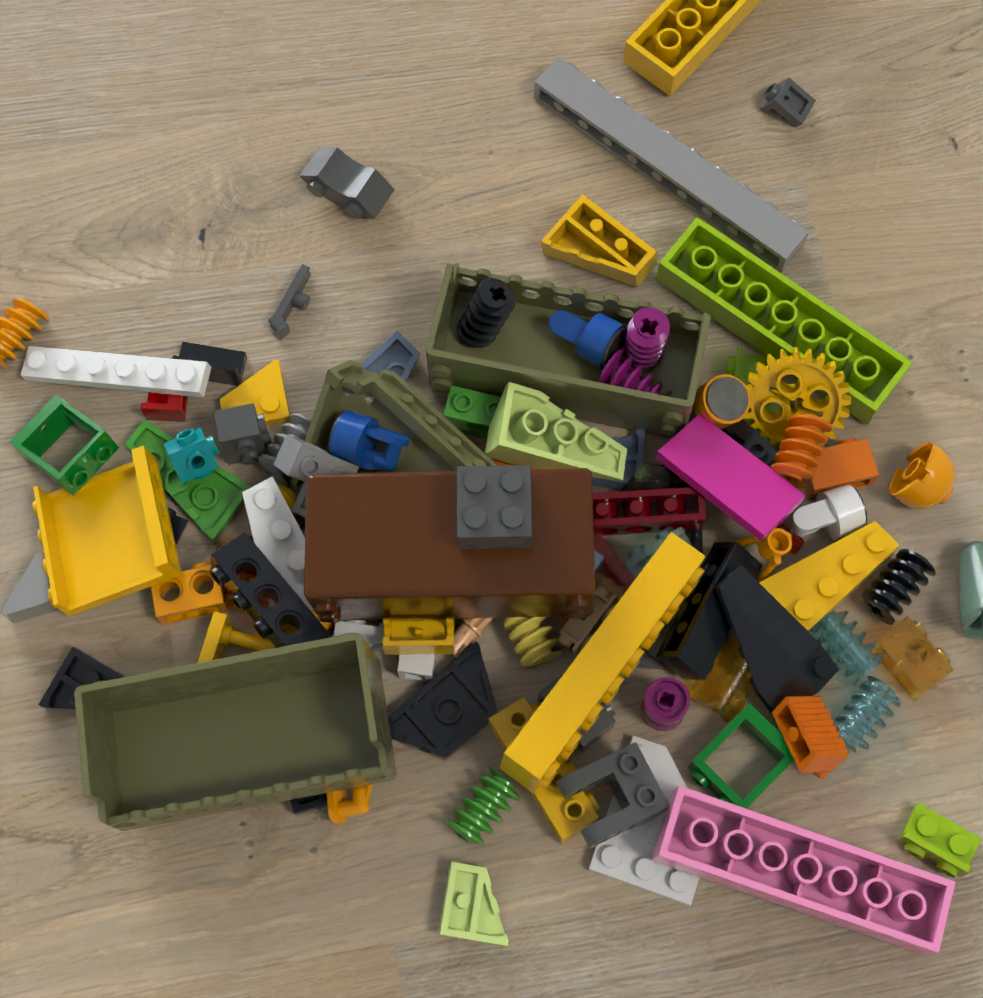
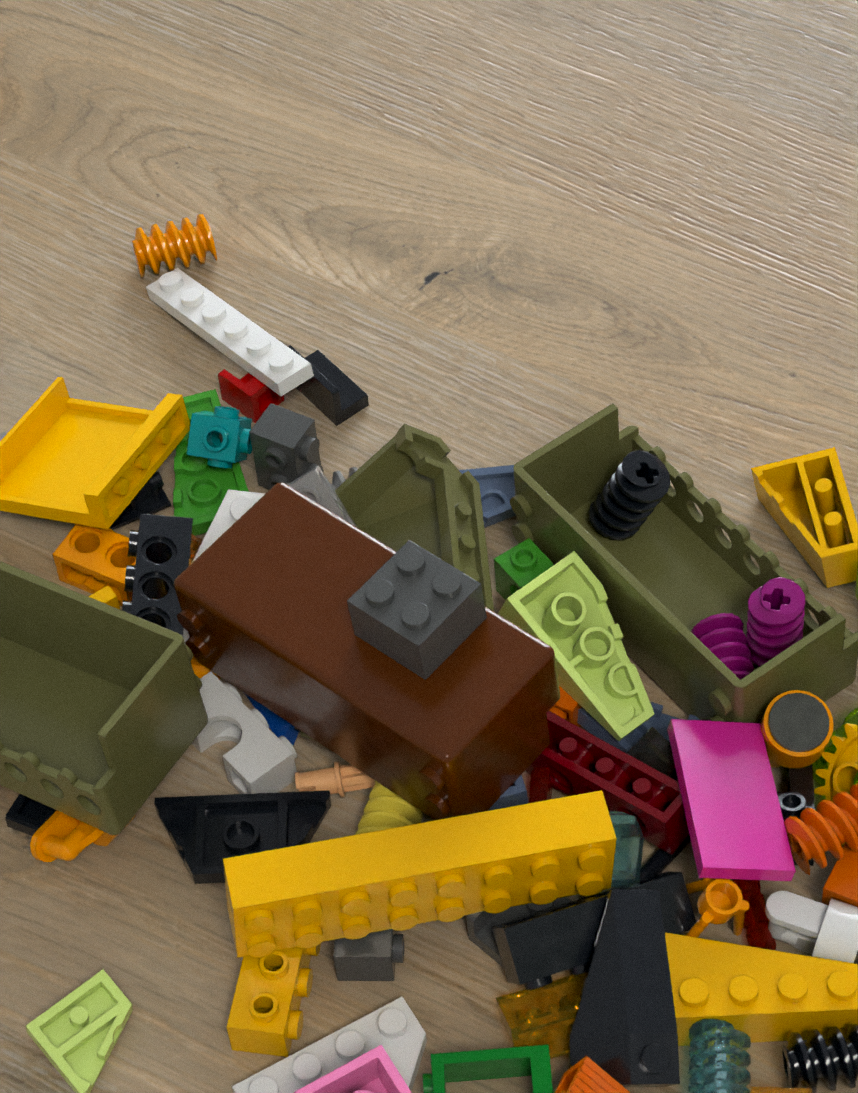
camera: 45 degrees right, 20 degrees down
(57, 418) = (100, 348): green window -> none
(265, 391) = (350, 442): yellow wing -> none
(292, 297) = (459, 377): dark grey piece -> none
(346, 183) = (610, 308): dark grey brick -> none
(355, 439) = (386, 514): blue piece -> none
(418, 636) = (269, 734): yellow hinge -> none
(483, 807) = (183, 947): bright green piece -> none
(595, 339) = (718, 585): blue piece -> none
(632, 785) = (342, 1024): dark grey brick -> none
(665, 704) = (460, 985): magenta wheel -> none

